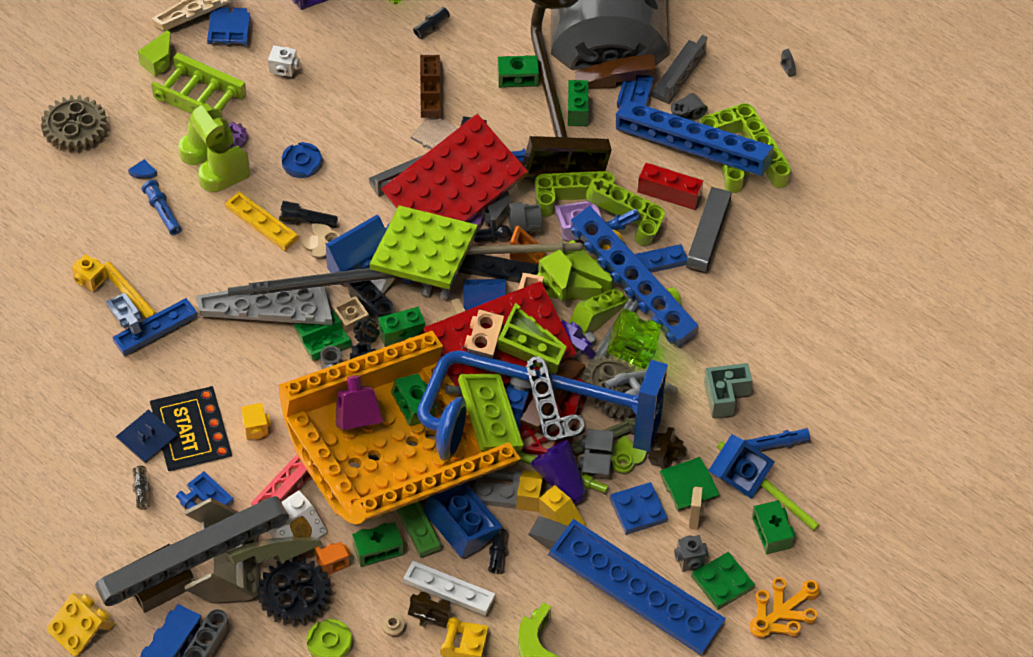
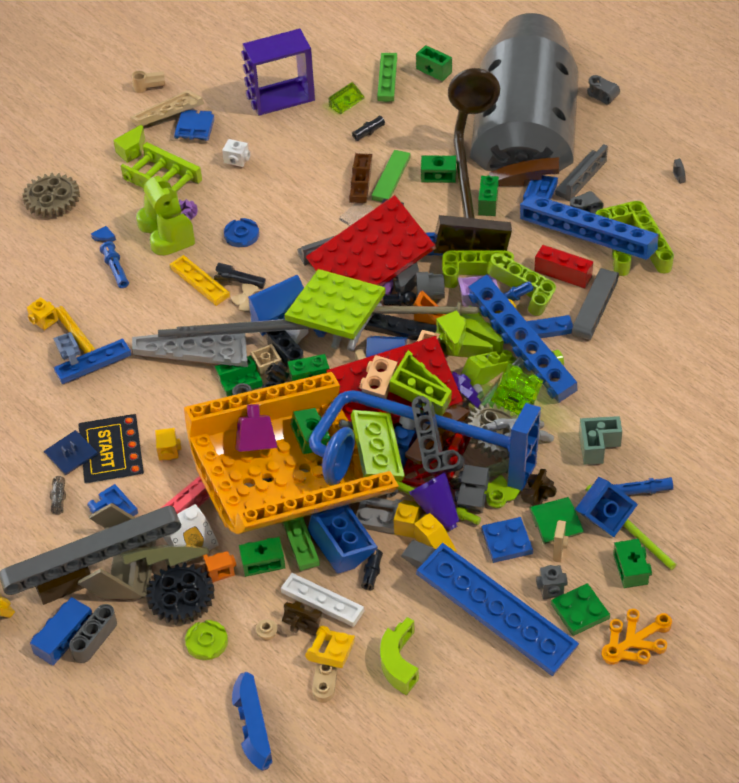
camera: 10 degrees right, 5 degrees down
(464, 82) = (391, 175): none -> bright green tile

